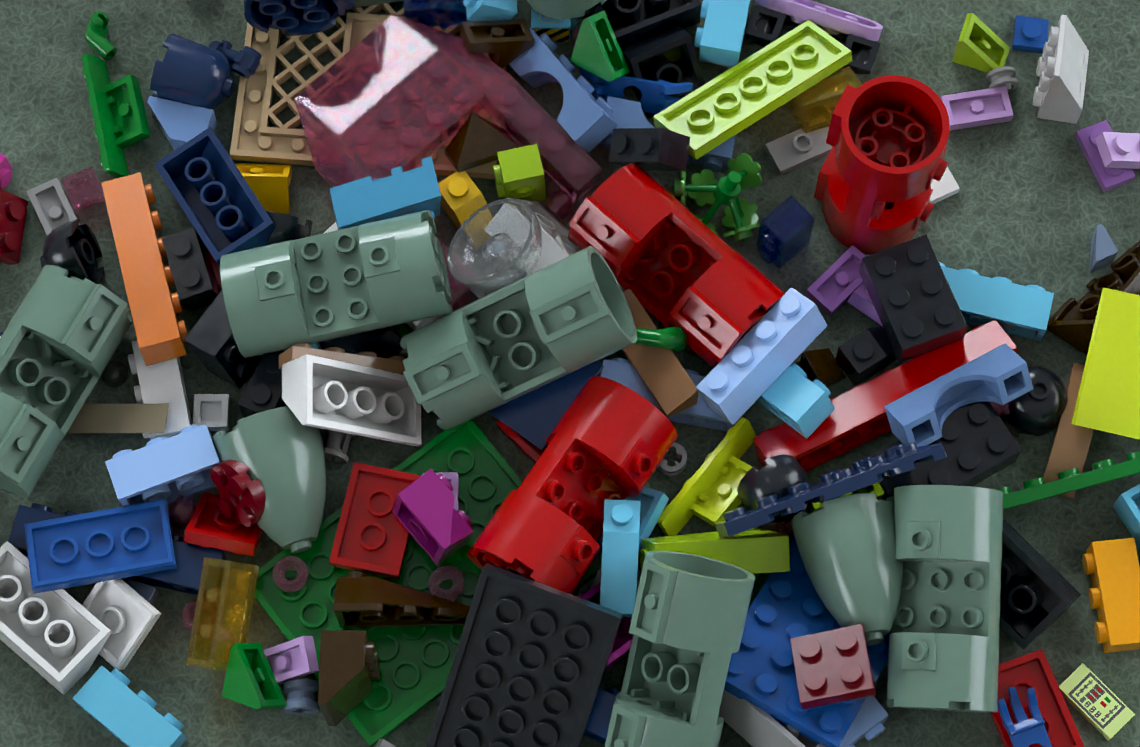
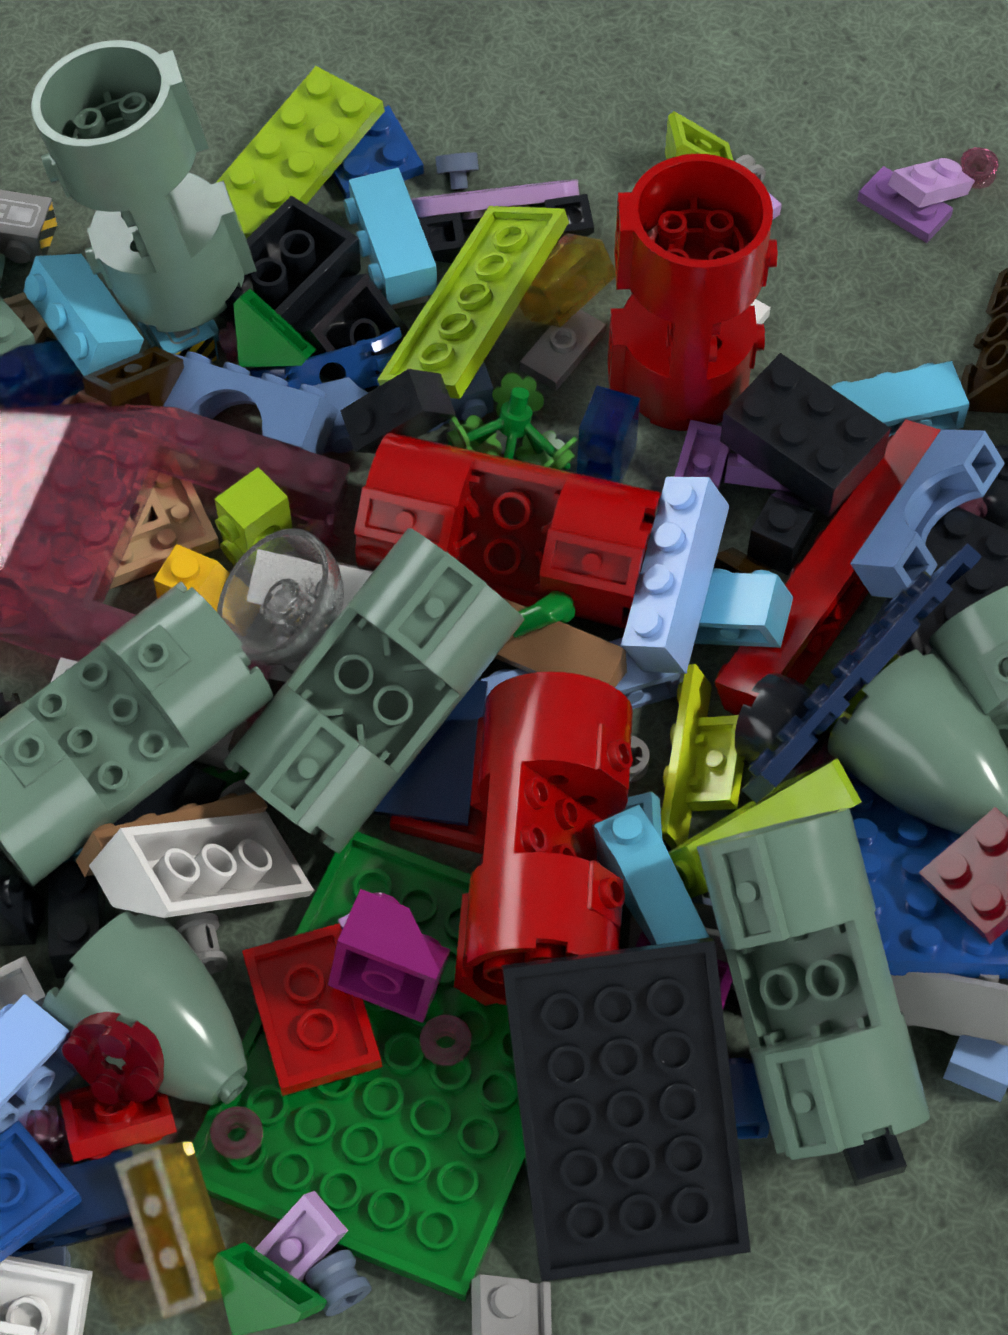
camera: 30 degrees left, 10 degrees down
(345, 672) = (389, 1202): dark brown slope -> none
(381, 603) = (387, 1101): dark brown wedge -> none
(387, 197) = (125, 589): dark azure wedge -> none
(478, 143) = (177, 509): dark brown slope -> none
(1029, 34) = (742, 119): blue plate -> none
(1061, 74) = (808, 137): white slope -> none
(1102, 249) = (967, 296): sand blue slope -> none

